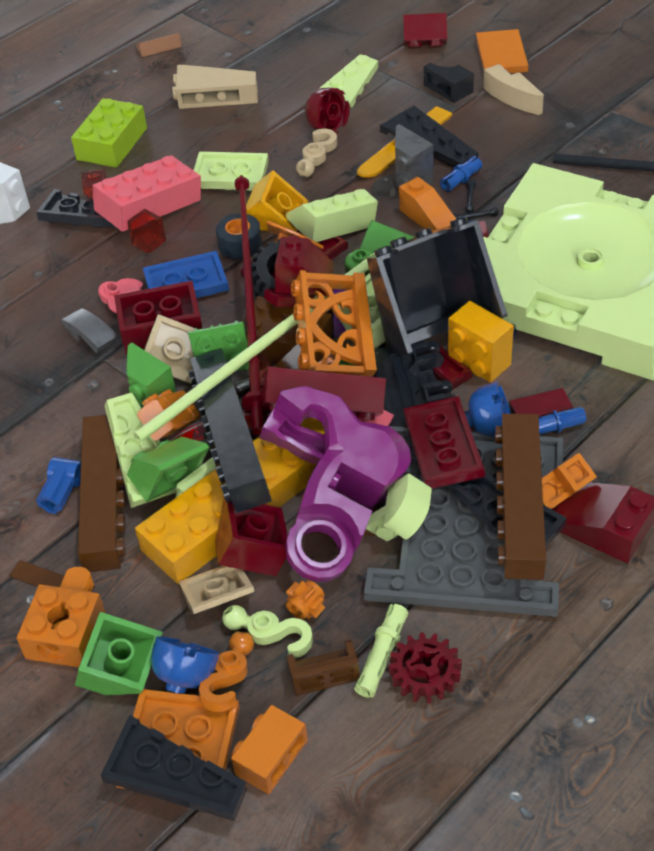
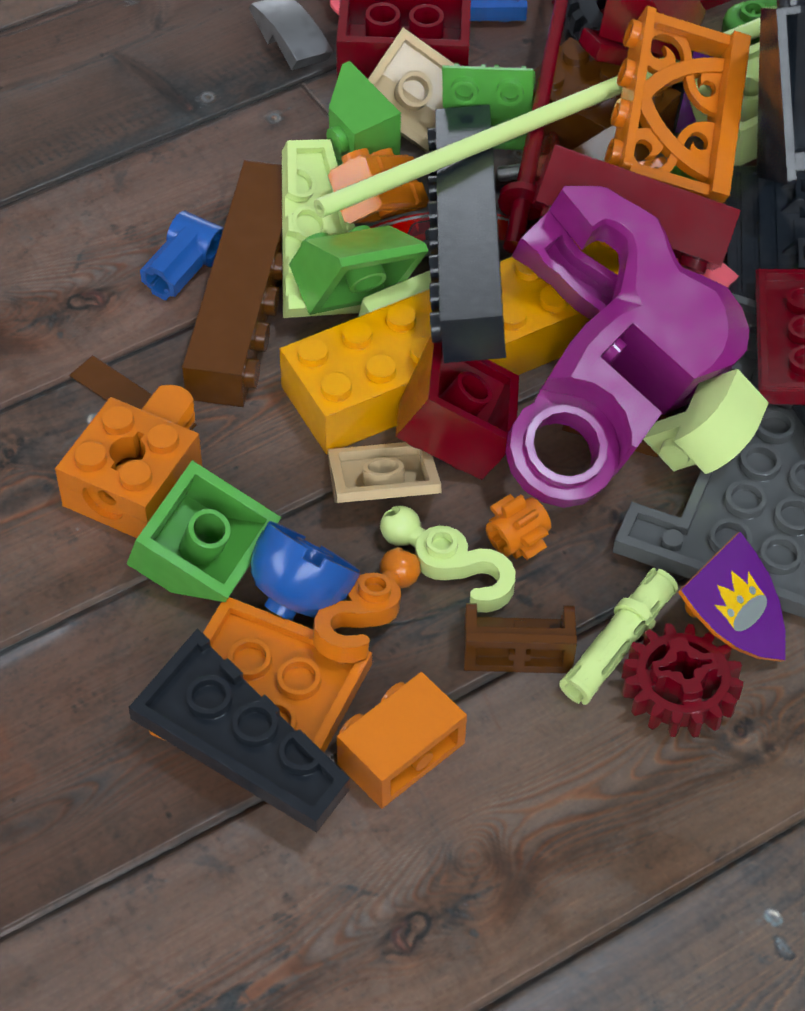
camera: 10 degrees right, 5 degrees up
(445, 611) = (738, 601): none -> dark purple shield

